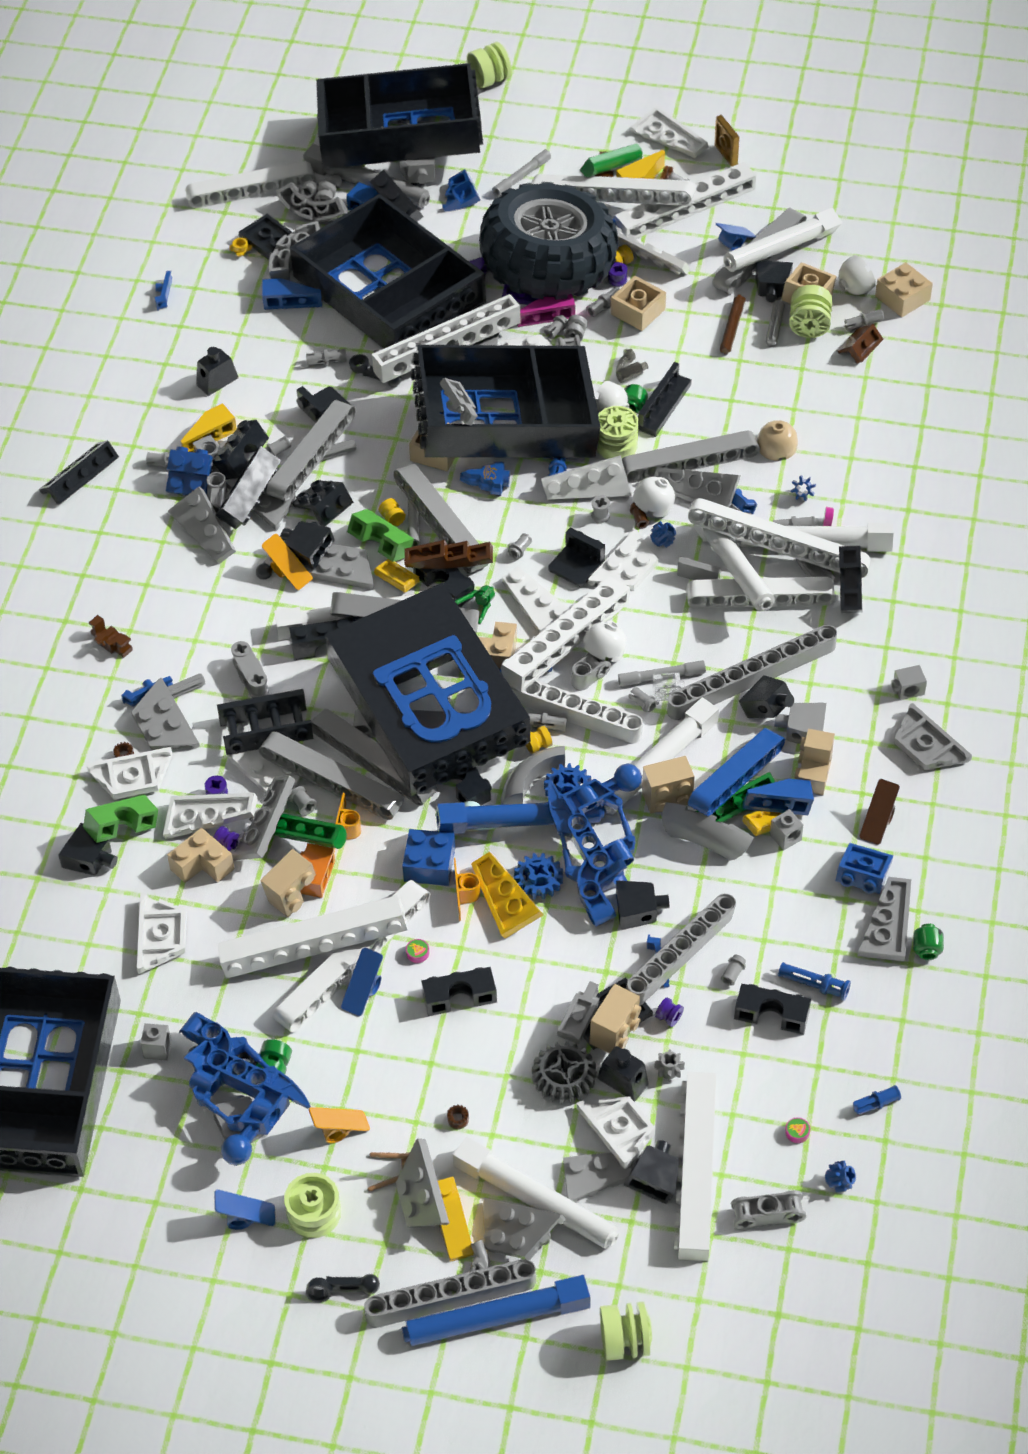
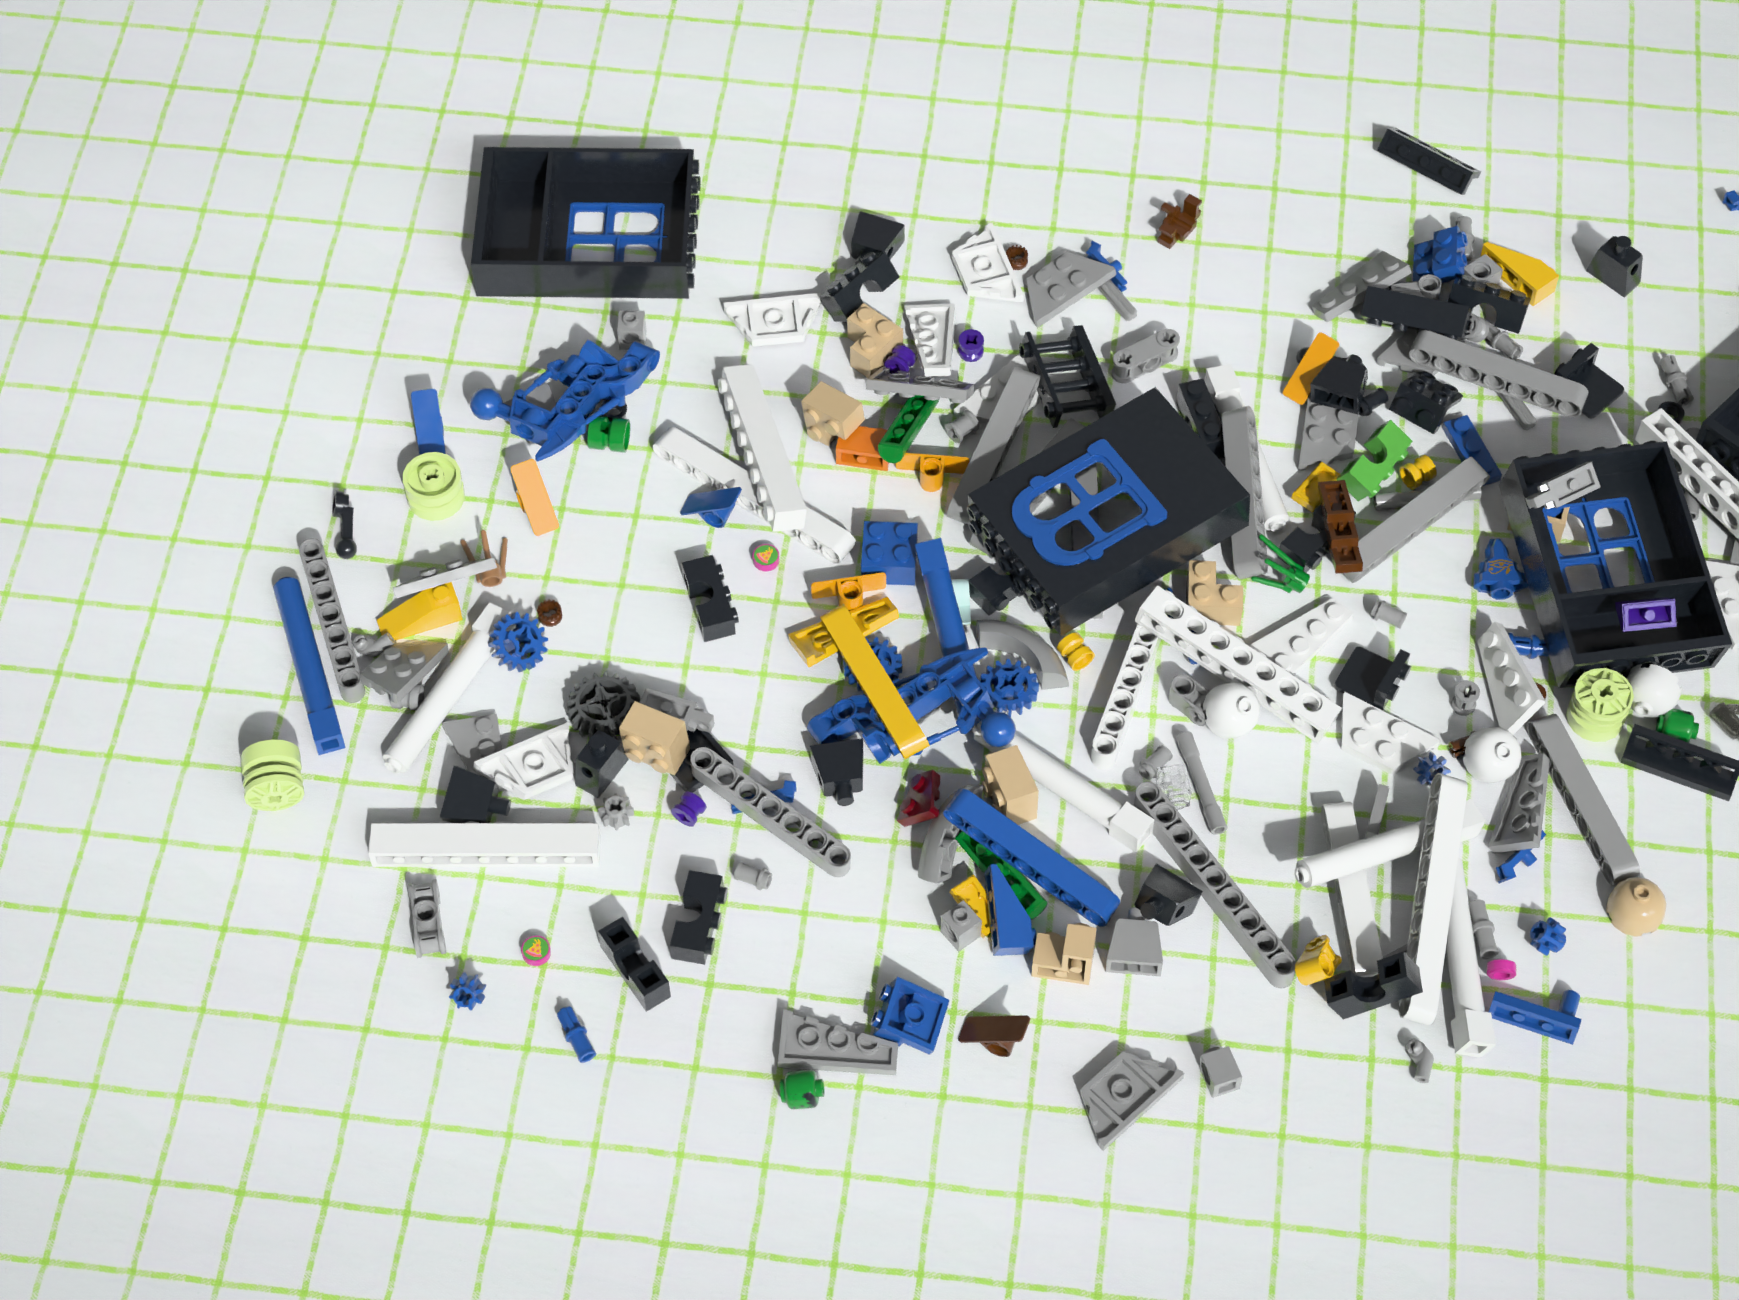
camera: 85 degrees right, 5 degrees up
(103, 820) = (903, 239): bright green arch -> none
(130, 852) = (843, 295): none -> black arch
(370, 482) = (1469, 444): none -> blue plate
(494, 1134) = (508, 647): none -> blue gear
(549, 722) = (1106, 658): light grey pin -> none
(561, 381) = (1646, 614): none -> dark purple slope
(573, 858) = (874, 681): none -> yellow beam
(672, 847) = (920, 799): none -> dark red wing
(823, 613) = (1317, 961): none -> yellow piece
(825, 986) = (737, 975): blue pin -> none
(835, 1043) = (640, 975): none -> black arch
(871, 493) = (1554, 1024): none -> blue piece
(895, 570) = (1422, 1058): none -> light grey arm

